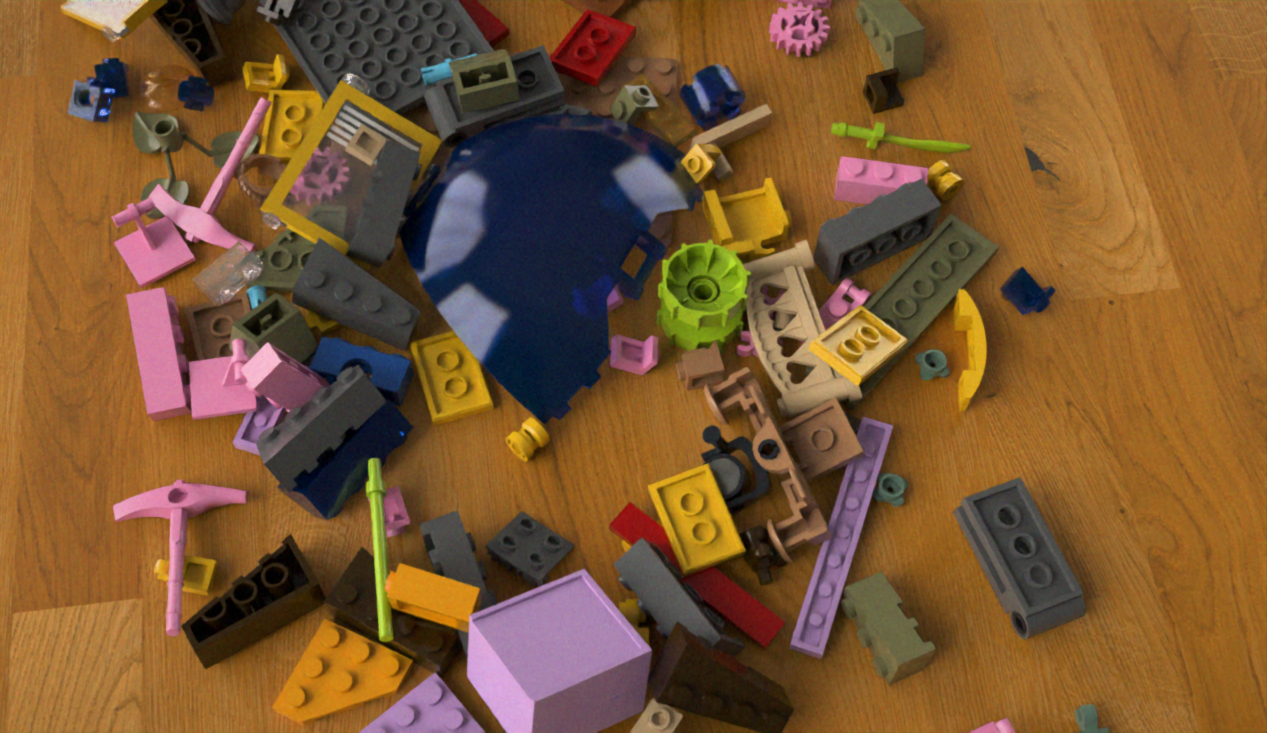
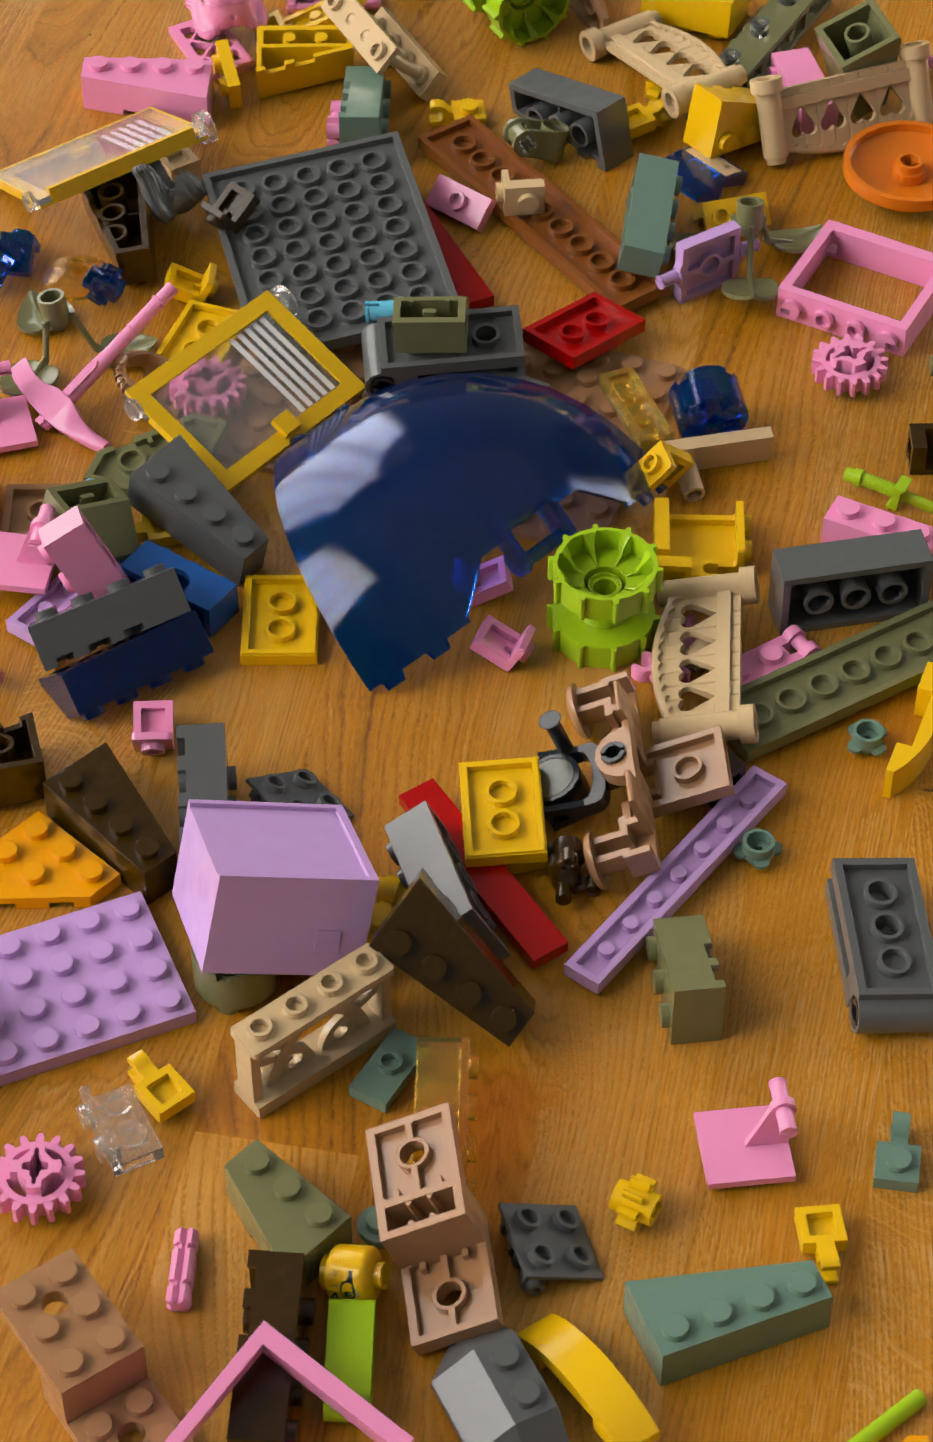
camera: 20 degrees right, 15 degrees down
(229, 274) = (68, 459): clear bracket -> none
(366, 144) = (271, 360): tan plate -> none
(376, 492) = (143, 697): lime bar -> none
(384, 205) = (266, 424): dark grey wedge -> none
(432, 597) = (154, 784): light orange window -> none
(527, 439) = (341, 696): yellow wheel -> none
(631, 103) = (605, 388): olive bracket -> none
(701, 367) = (575, 667): medium nougat window -> none
(858, 345) = (773, 683): yellow tile -> none

